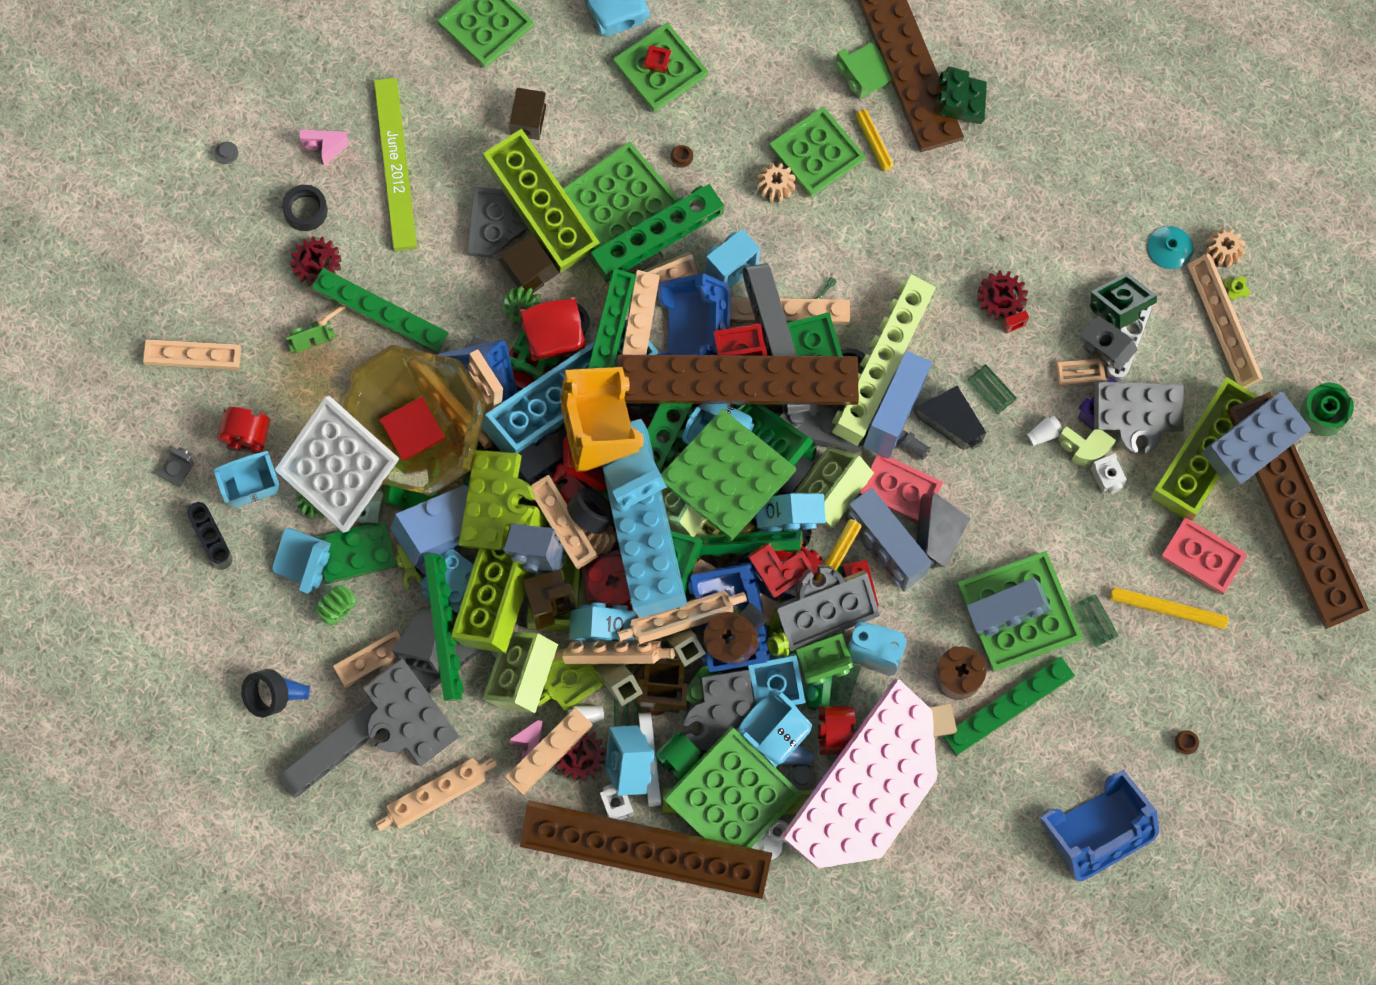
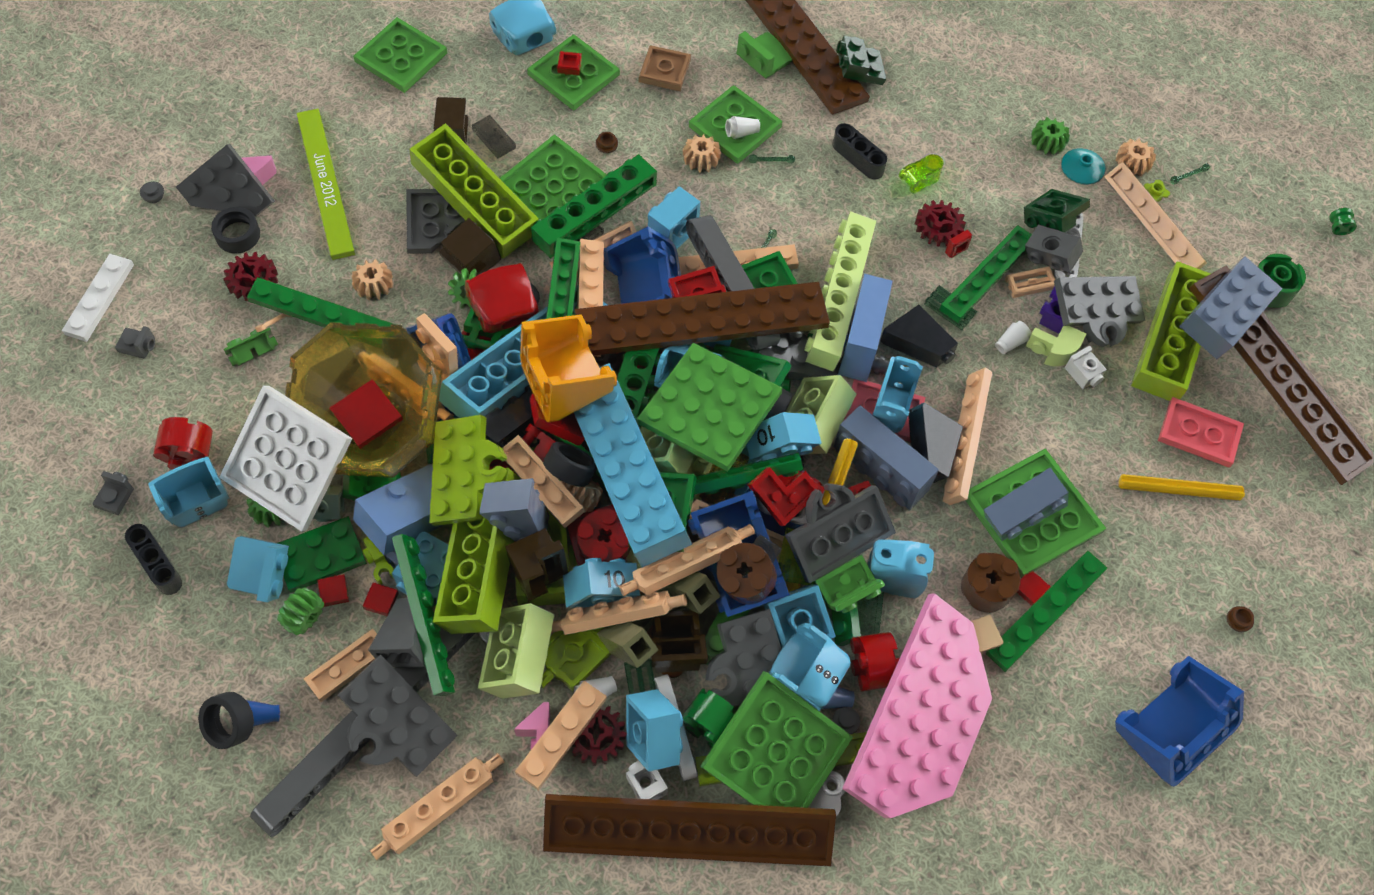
camera: 10 degrees left, 10 degrees down
(170, 262) = (97, 297): none -> white plate
(192, 354) = (124, 380): light nougat plate -> none
(204, 315) = (136, 342): none -> dark grey bracket
(299, 159) = (225, 183): none -> dark grey plate
(365, 588) = (333, 590): none -> red tile
(406, 603) = (380, 599): none -> red tile
(427, 289) = (372, 279): none -> light nougat gear
(568, 134) = (493, 136): none -> clear smoke plate
(634, 478) = (613, 418): medium azure bracket -> none
(756, 74) = (665, 68): none -> medium nougat plate
(778, 644) = (796, 577): lime plate -> none
(821, 161) = (740, 127): none -> white cone
(828, 193) = (753, 158): none -> clear green hinge
(874, 140) = (786, 109): yellow axle -> none
(909, 481) = (895, 398): none -> medium azure piece
(937, 192) = (859, 151): none -> black beam
(980, 515) = (971, 419): none -> light nougat plate
(992, 236) = (922, 172): none -> clear neon green piece
(999, 682) = (1032, 588): none -> red tile
(1034, 360) = (986, 275): none -> green plate
(1086, 602) = (1109, 513): clear green tile -> none
(1145, 218) = (1050, 136): none -> bright green gear
(1262, 277) = (1175, 179): none -> clear green hinge

